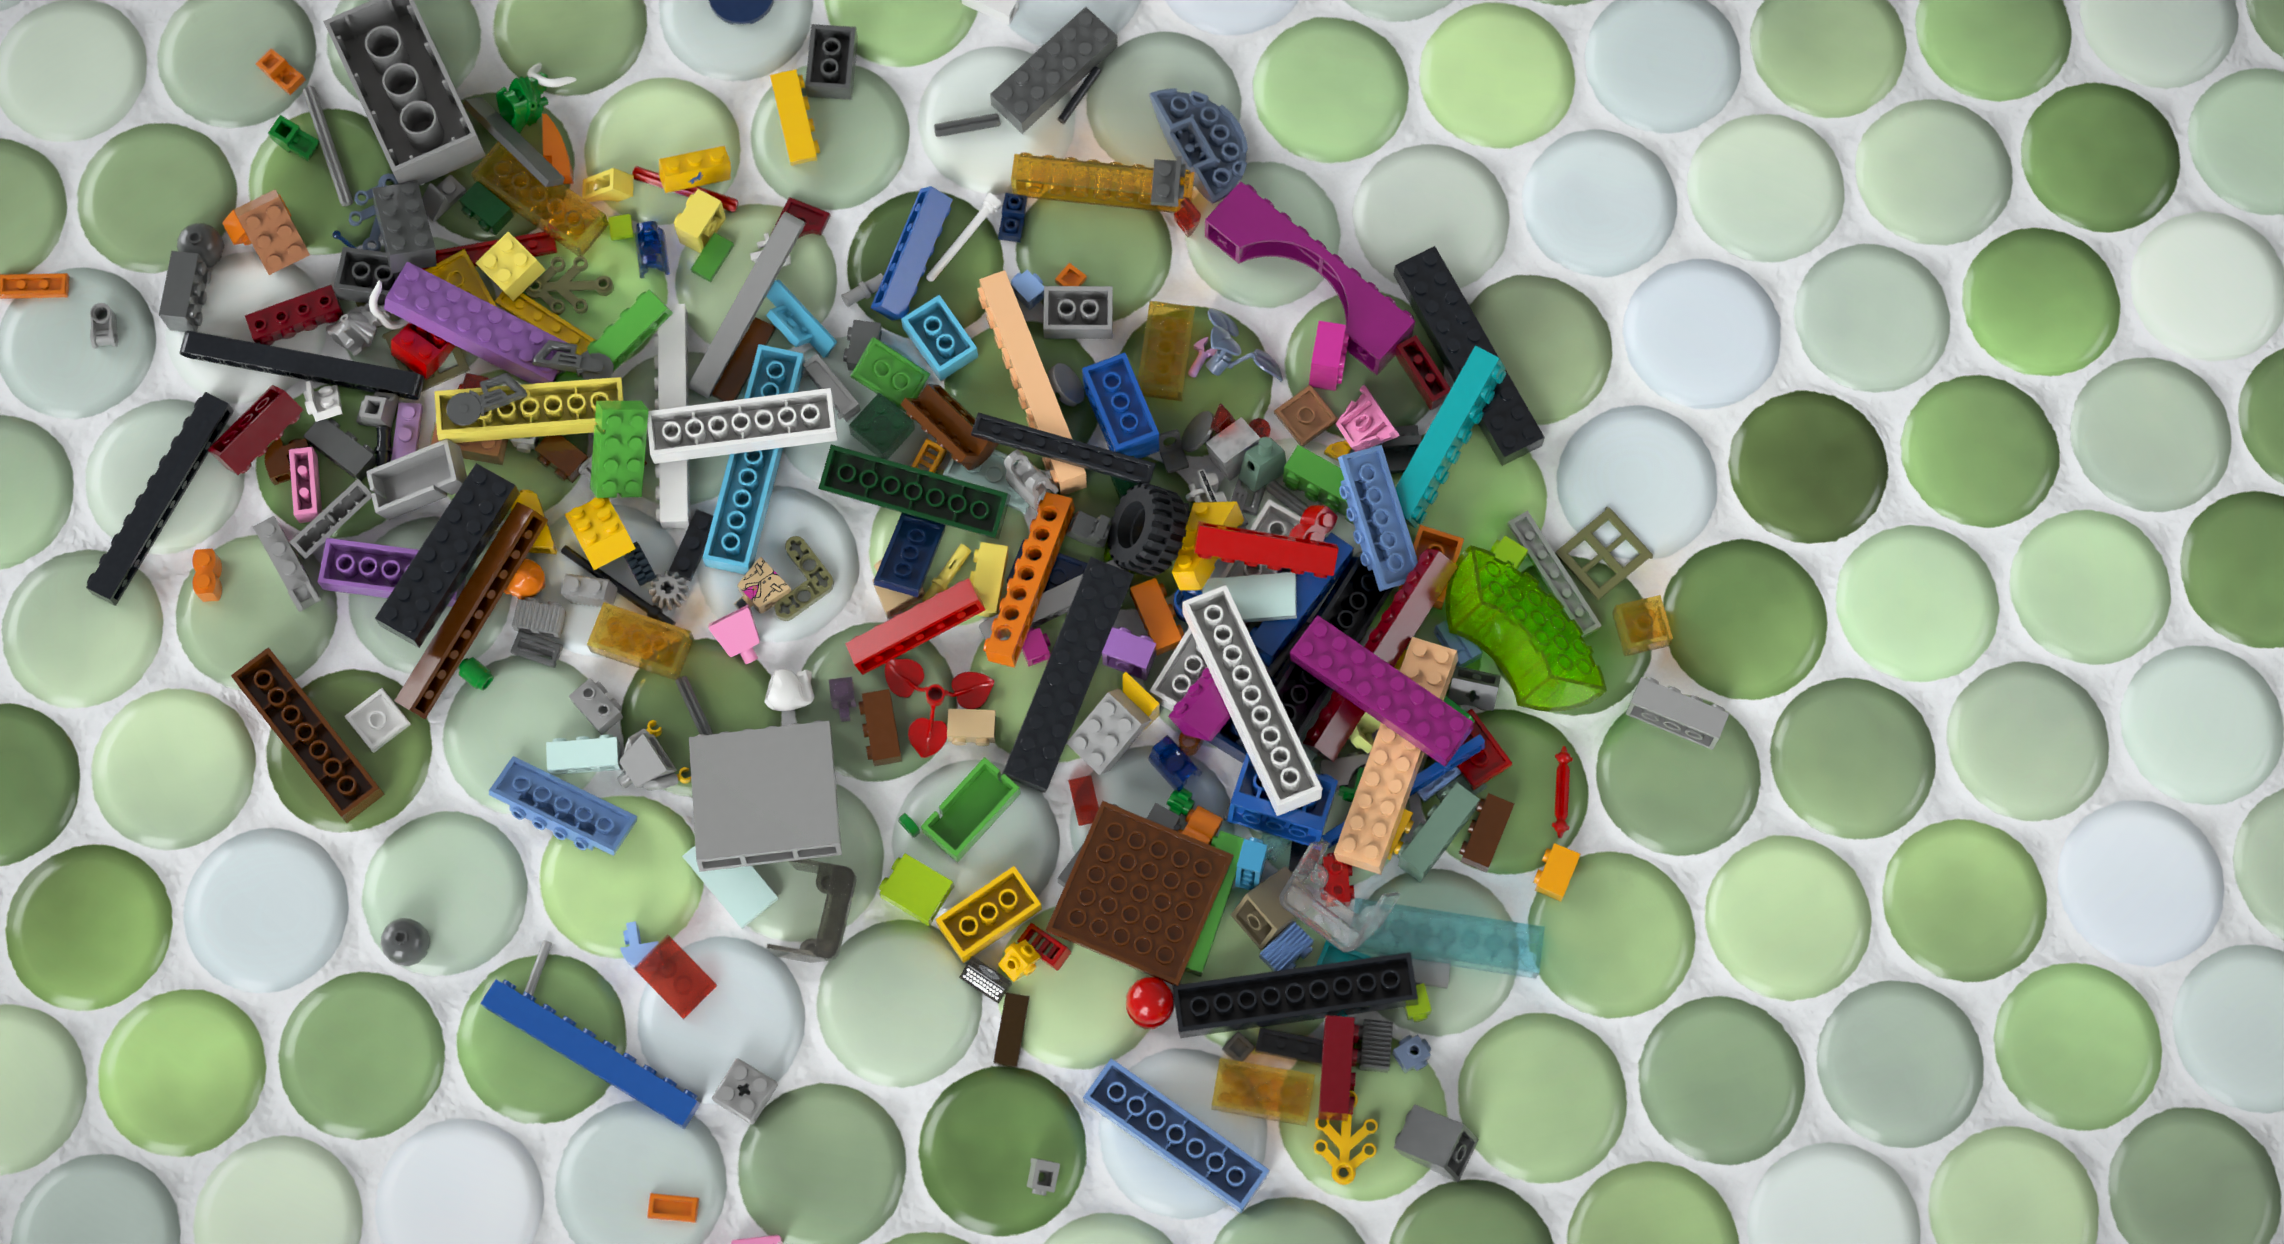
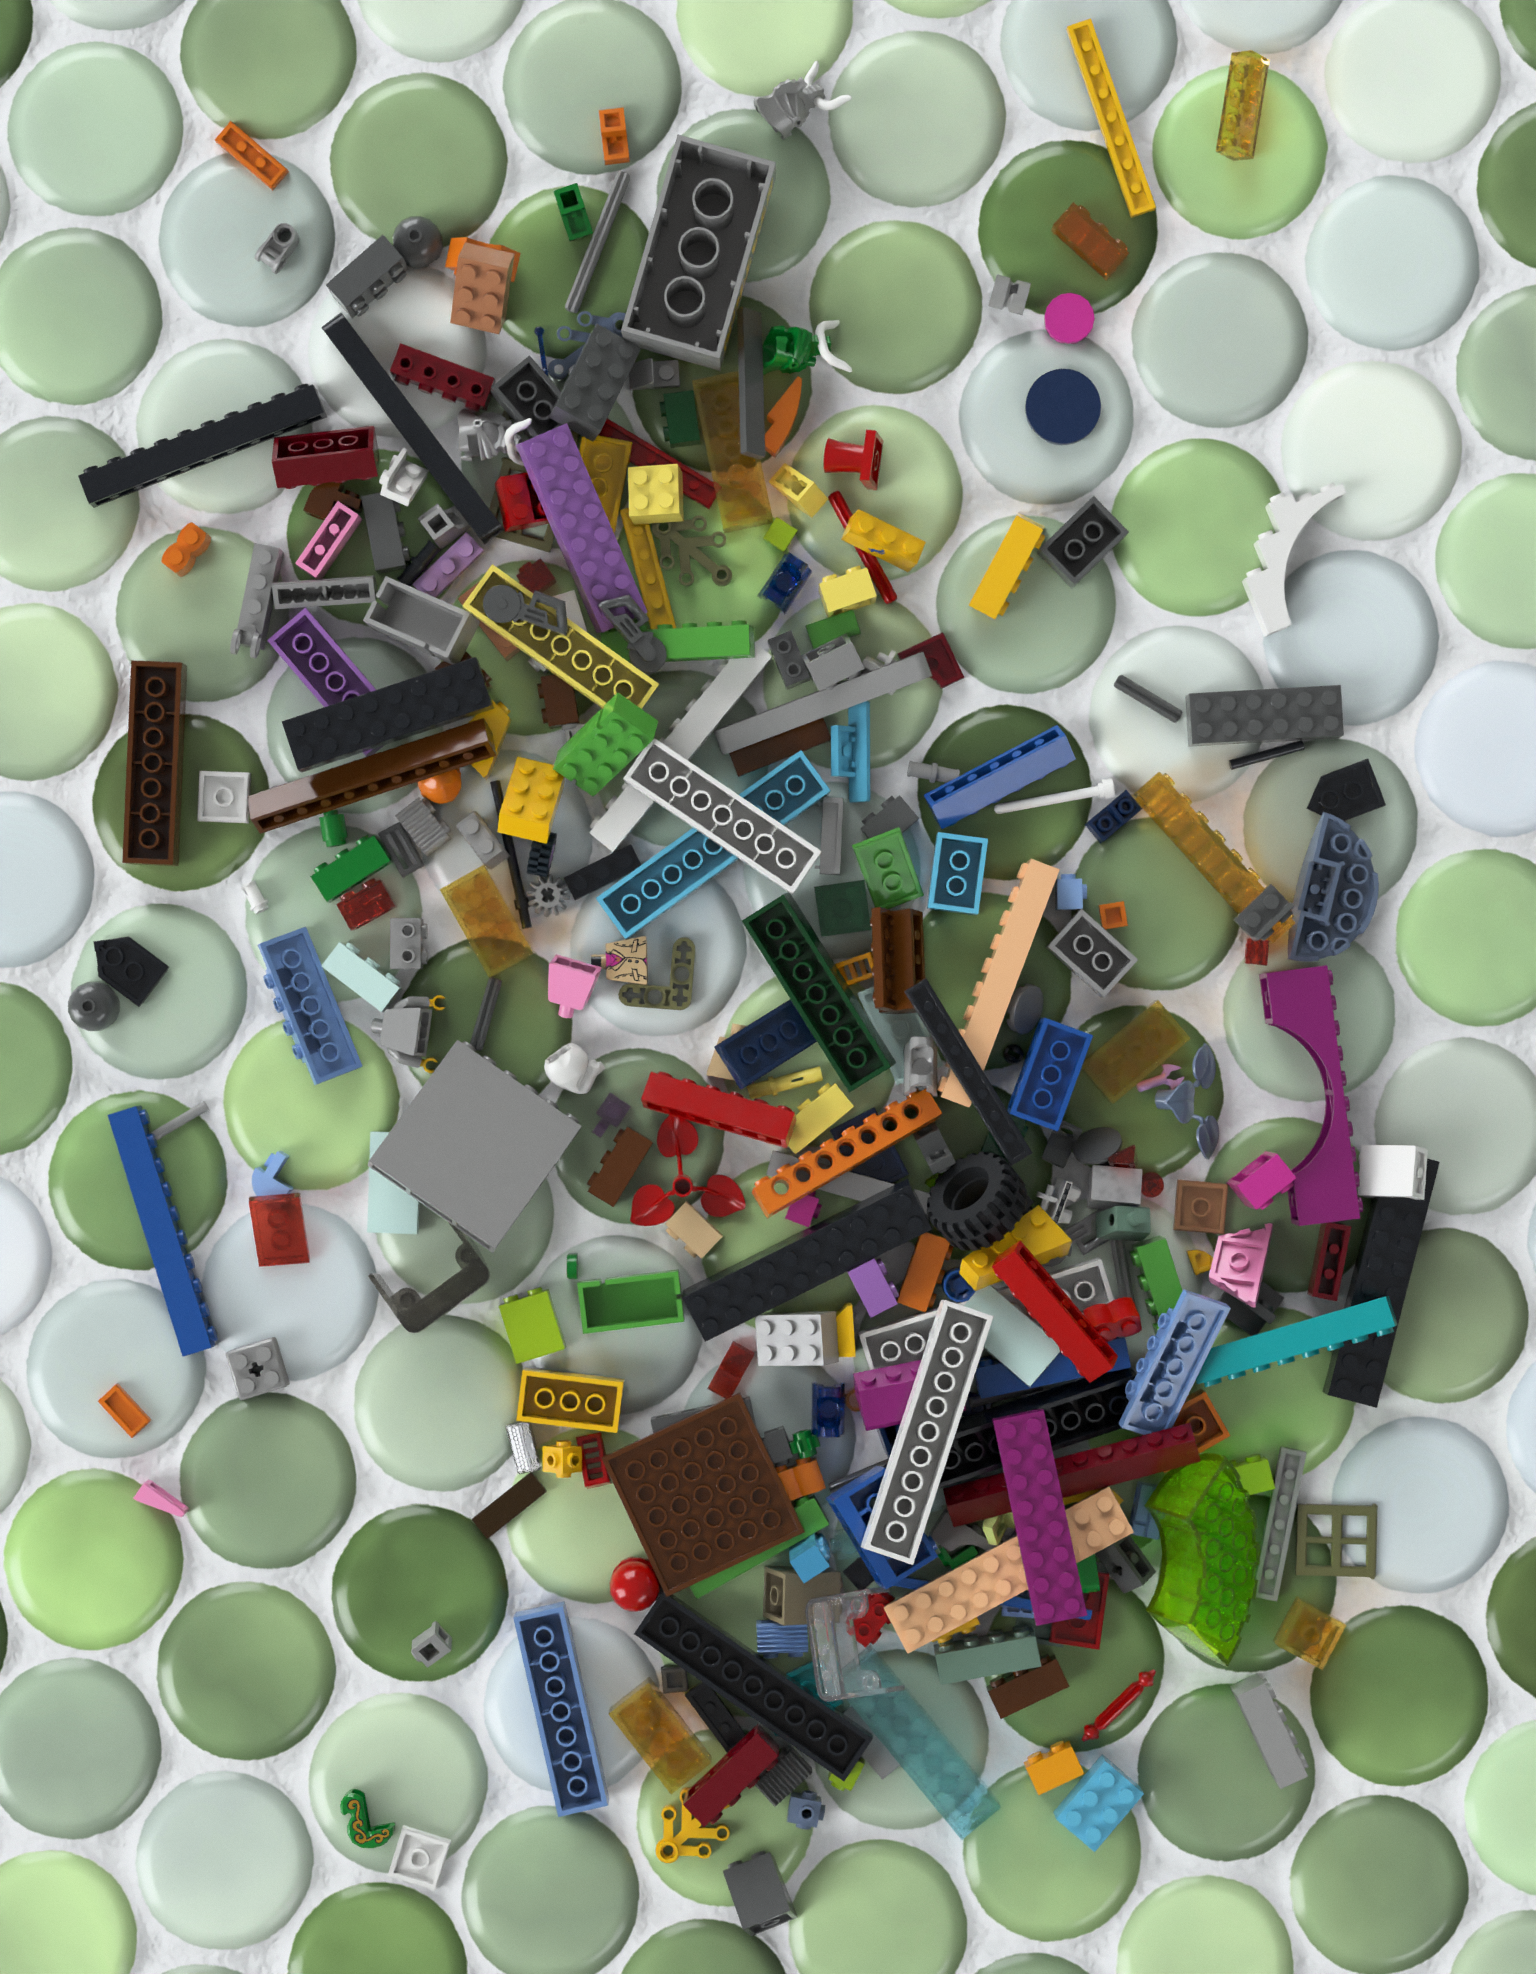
camera: 45 degrees right, 15 degrees up
(408, 893) = (129, 968): none -> black tile
(459, 768) = (255, 898): none -> white pin
(511, 689) = (350, 868): none -> green brick
(543, 704) = (366, 904): none -> clear red brick
(628, 134) = (856, 458): none -> red plant
(699, 299) = (788, 660): none -> dark grey brick
(730, 271) = (833, 662): none -> light grey brick
(1086, 429) = (1011, 1059): none -> black hinge
(1154, 71) = (1347, 792): none -> black tile
(1409, 275) = (1392, 1171): none -> white panel
(1610, 868) = (1098, 1803): none -> medium azure brick

